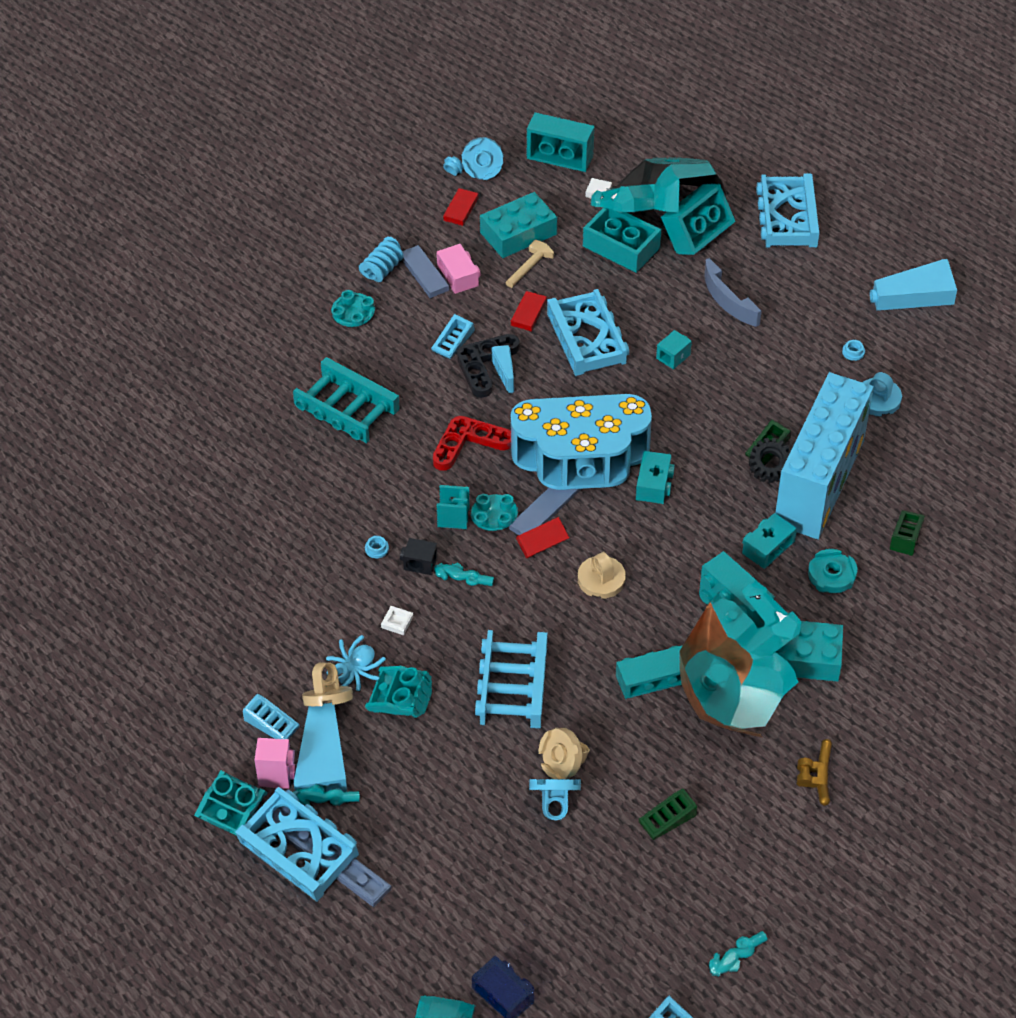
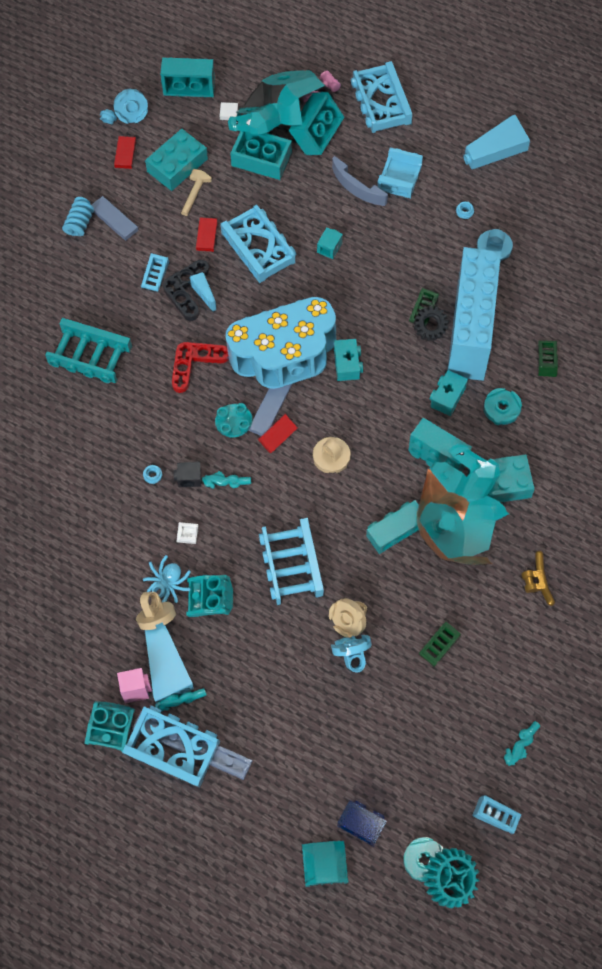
camera: 15 degrees left, 15 degrees up
(258, 708) = (114, 651): medium azure slope -> none
(353, 309) = (68, 266): teal dish -> none
(453, 512) = (207, 431): teal piece -> none
(458, 268) = (140, 210): bright pink brick -> none
(730, 182) = (327, 78): none -> bright pink piece
(786, 294) = (400, 172): none -> medium azure panel

